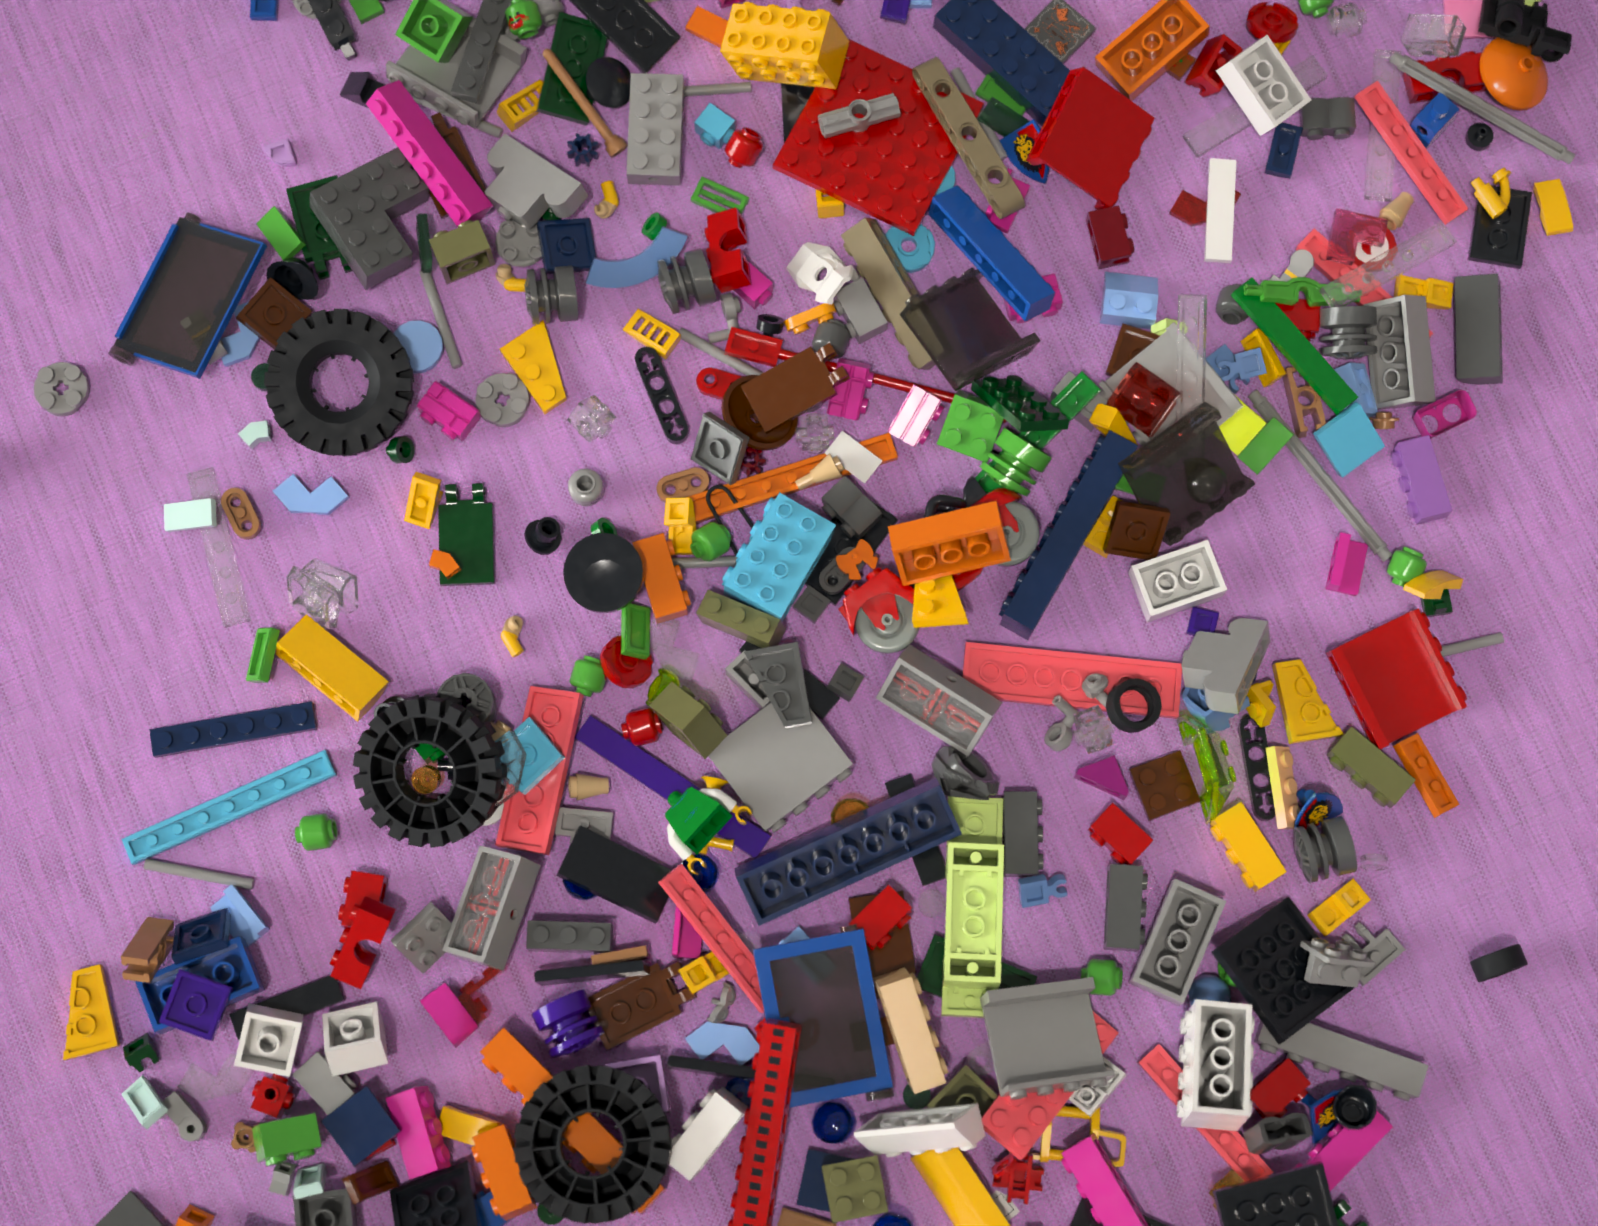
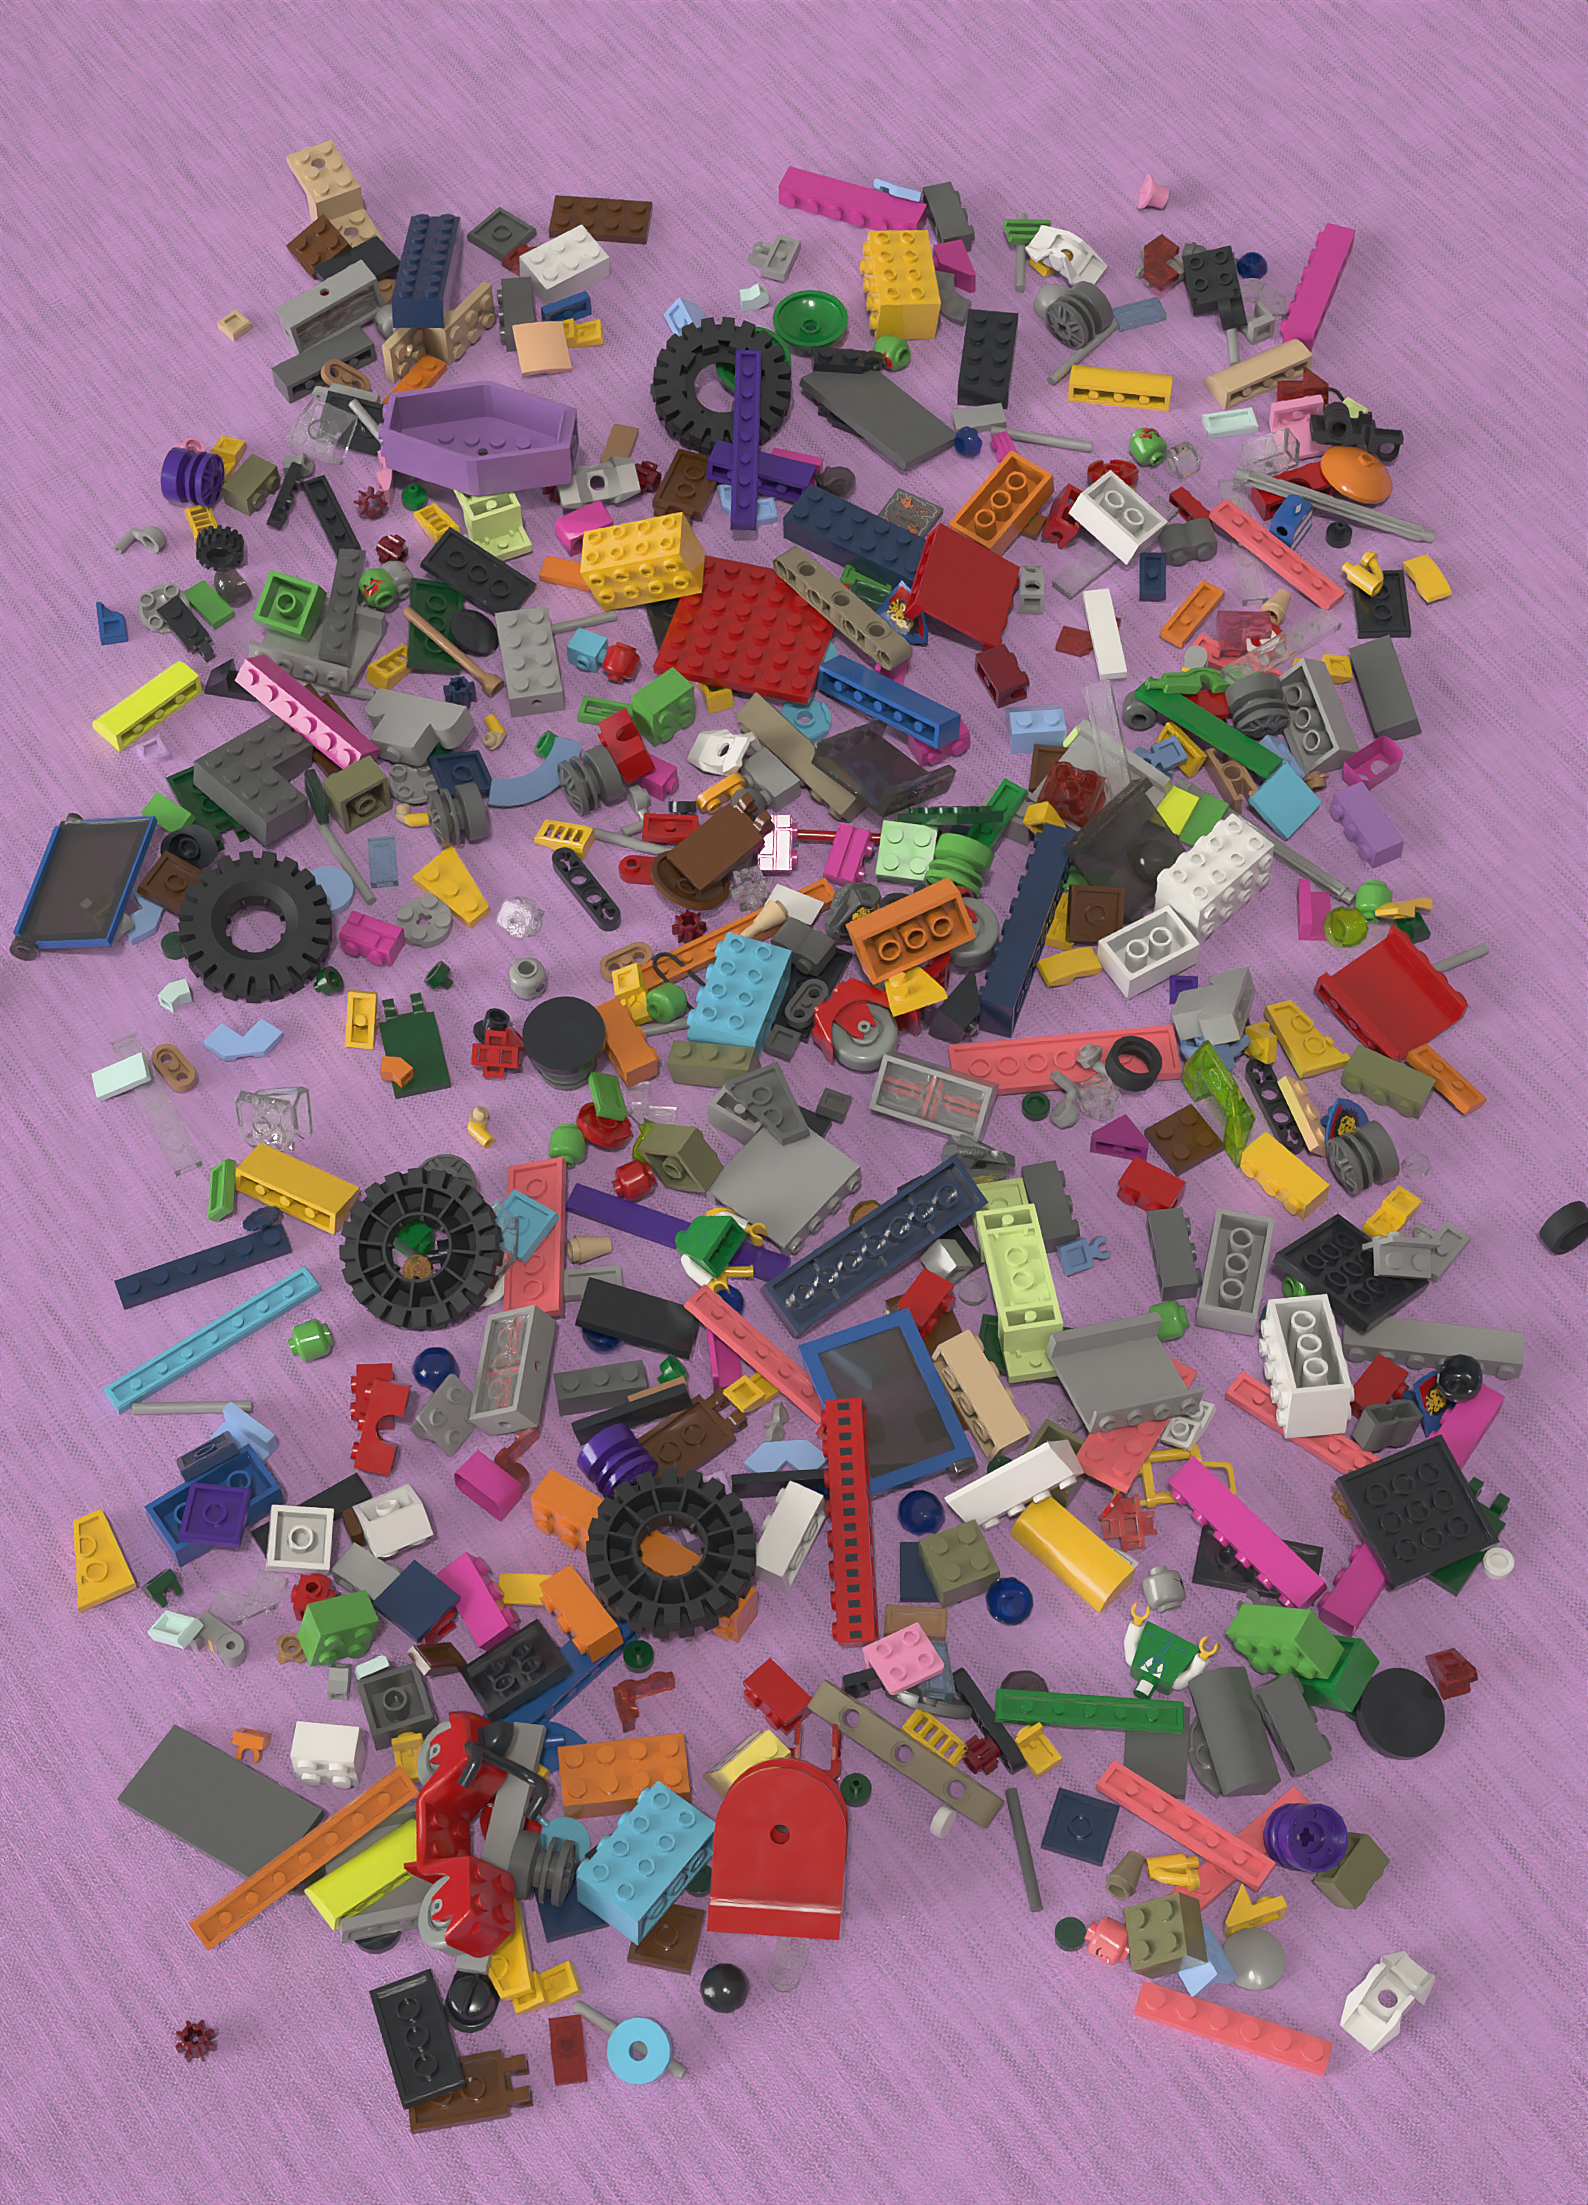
camera: 10 degrees left, 20 degrees down
(147, 949) = (153, 1475): medium nougat piece -> none
(283, 102) = (149, 705): none -> neon yellow brick
(294, 692) = (261, 1218): none -> dark blue piece
(317, 1025) = (352, 1527): none -> reddish brown tile
(425, 882) = (433, 1367): none -> clear blue hair
(475, 325) = (383, 862): none -> clear light blue tile
(503, 465) = (438, 976): none -> dark green tile
(535, 565) = (489, 1055): none -> red piece
(639, 932) = (672, 1369): none -> green tile
(719, 448) = (657, 916): dark grey tile -> none
(774, 212) = (664, 707): none -> bright green brick
(848, 562) = (813, 990): orange piece -> none
(874, 110) = (729, 607): light grey piece -> none
(912, 876) = (946, 1260): none -> light grey brick
(919, 485) = (861, 899): none -> dark grey helmet
(985, 614) = (959, 1012): none -> black slope
(1034, 720) = (1035, 1106): none -> dark green tile
(1099, 576) = (1065, 966): none -> yellow slope
(1161, 142) = (1032, 590): none -> light grey leg
(1259, 518) = (1216, 876): none -> white brick
(1311, 202) = (1192, 614): none -> orange plate
(1339, 76) = (1187, 505): none -> red piece
(1372, 592) = (1345, 927): none -> clear neon green hair

